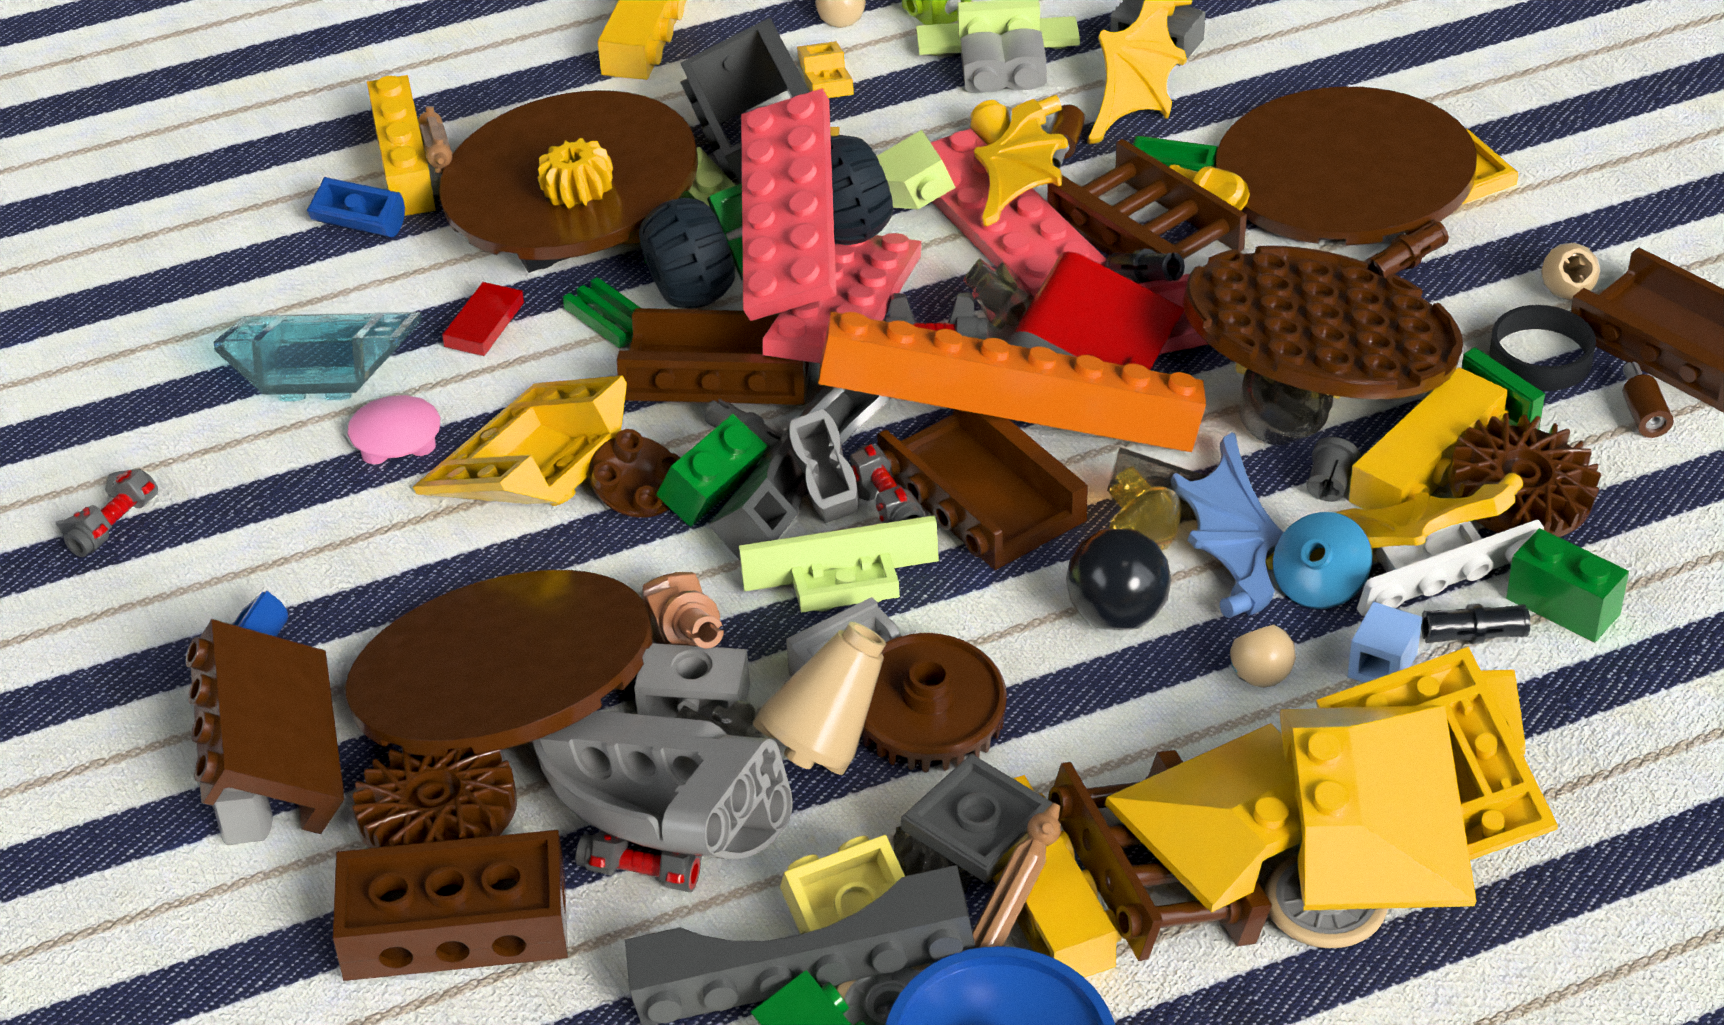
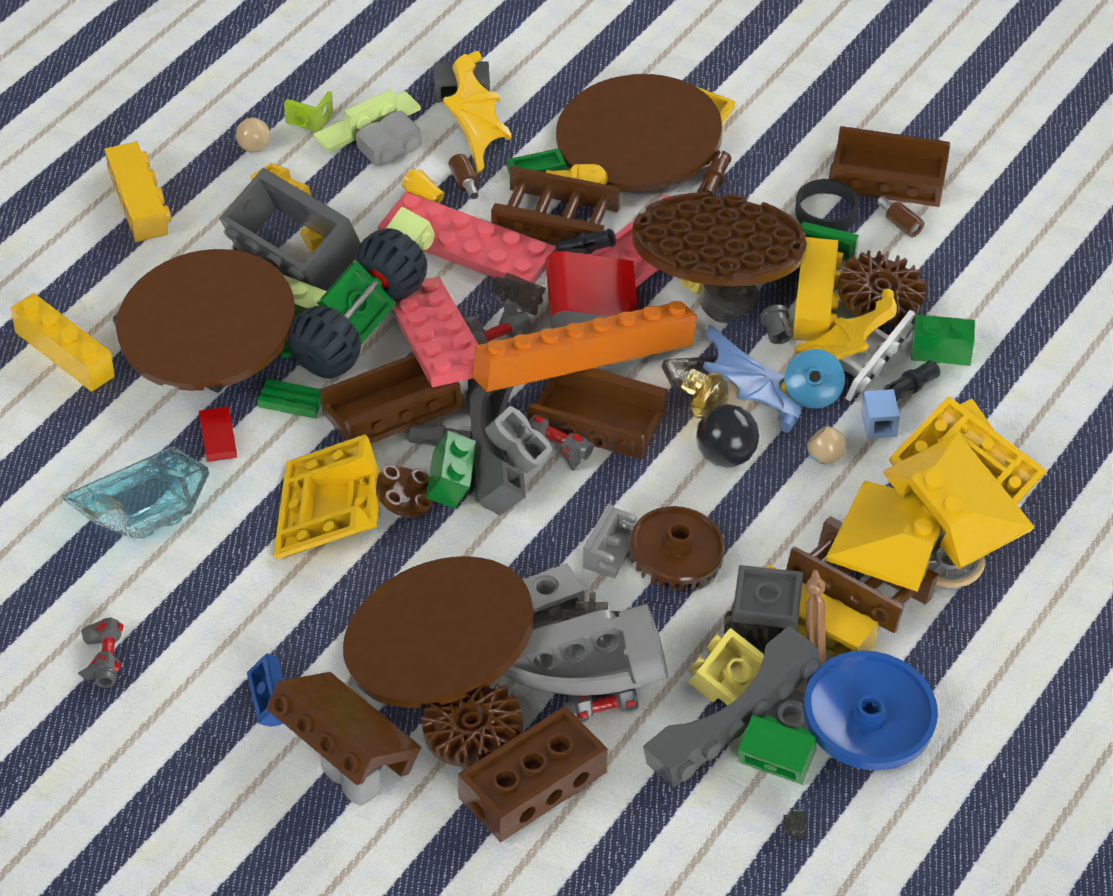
camera: 35 degrees left, 5 degrees up
(358, 207) = (72, 394): blue brick -> none
(394, 428) = (228, 525): bright pink dish -> none
(435, 139) = (103, 335): medium nougat wheel -> none
(575, 173) = (226, 318): yellow gear -> none
(681, 611) = (521, 558): nougat piece -> none
(787, 205) = (382, 287): coral plate -> none
(826, 701) = (641, 569): tan cone -> none
(841, 564) = (568, 494): yellowish green bracket -> none
(1021, 156) = (461, 200): yellow animal -> none
(1569, 270) = (811, 153): tan piece -> none

